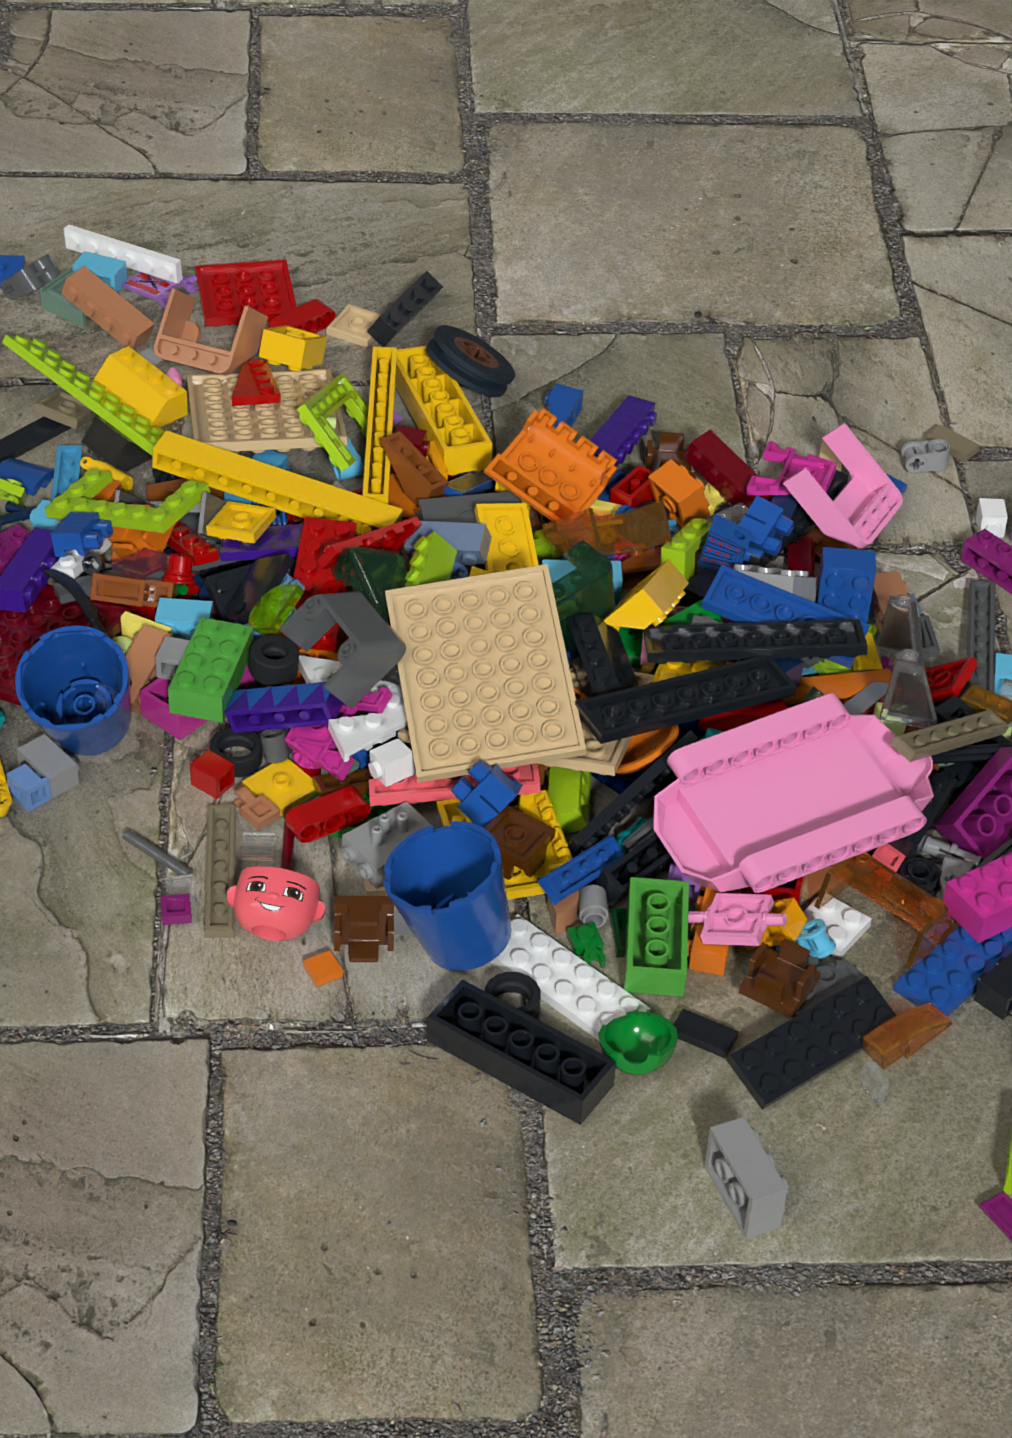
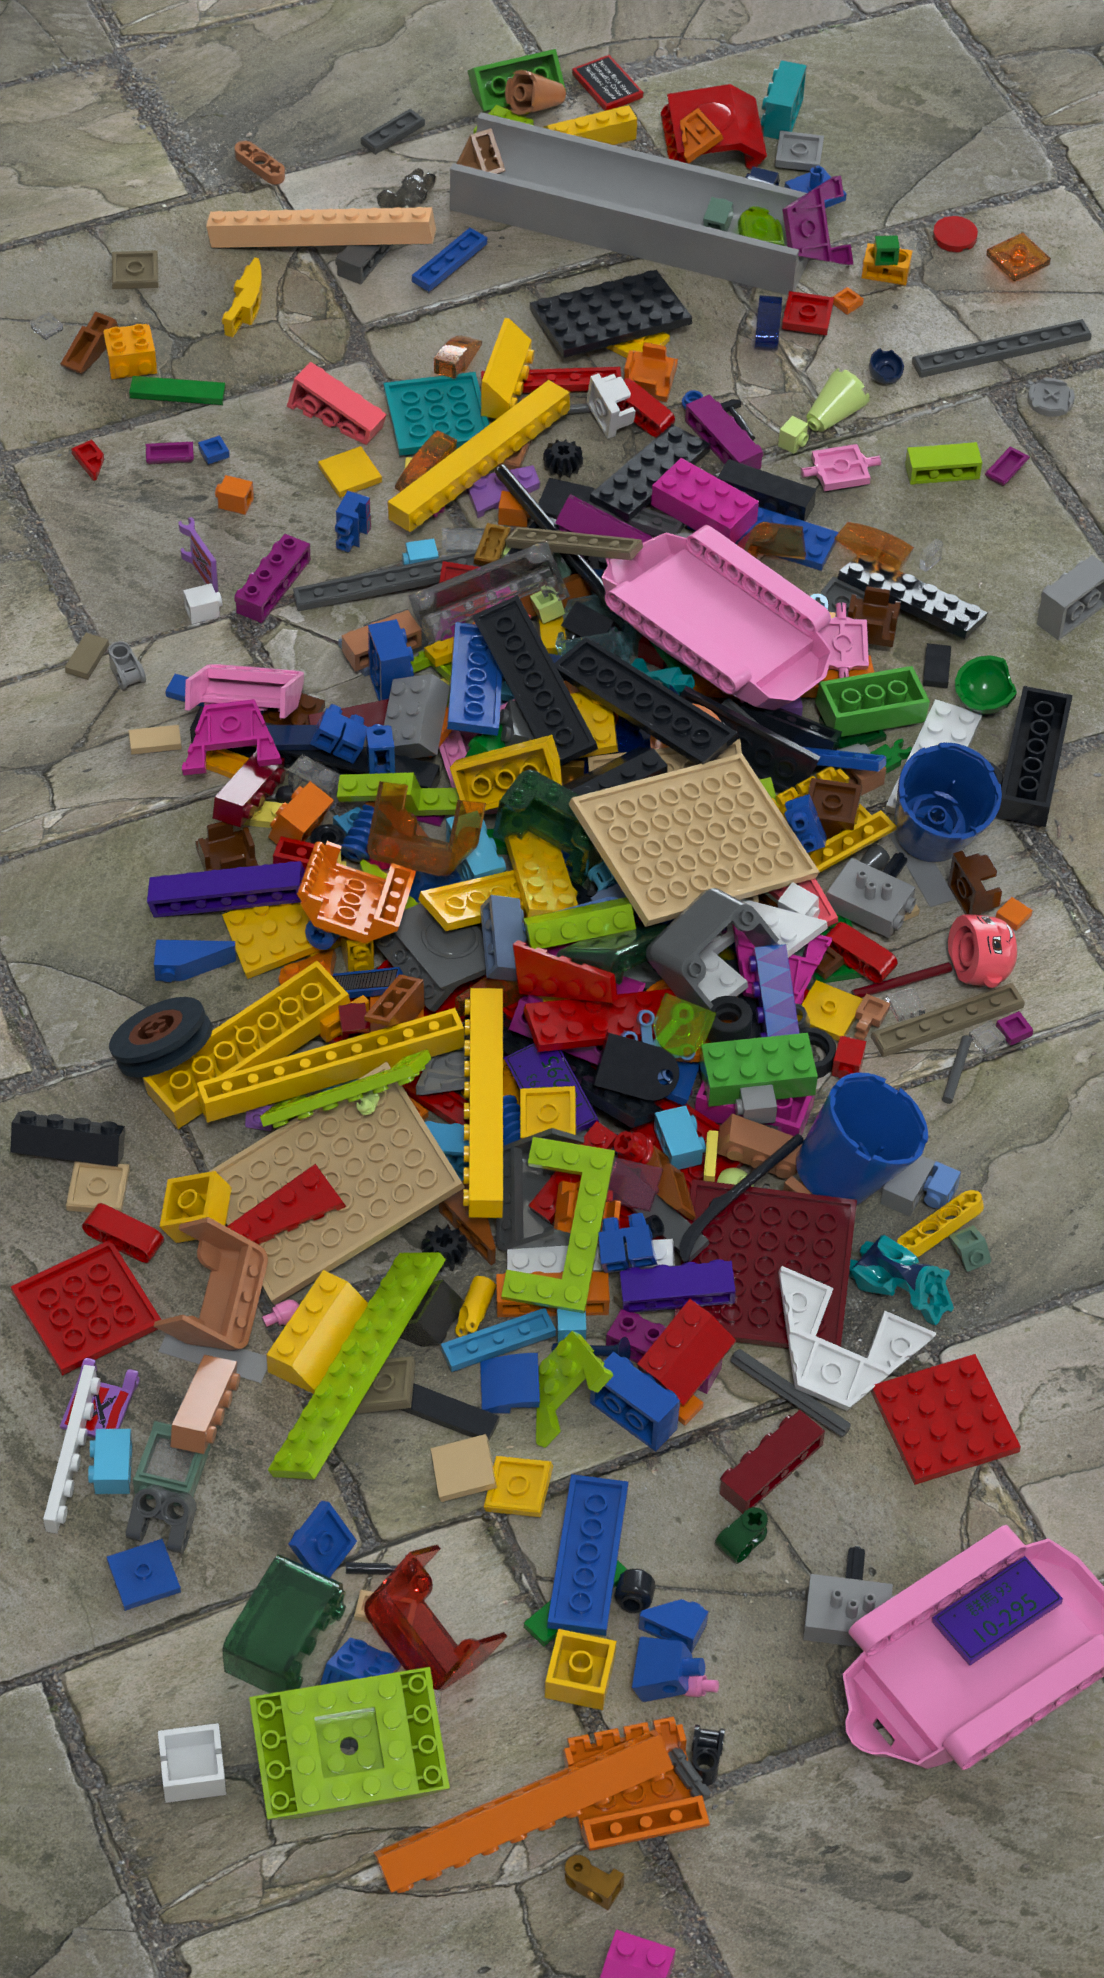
camera: 110 degrees left, 10 degrees up
(866, 698) = (551, 623): light grey sticker -> none

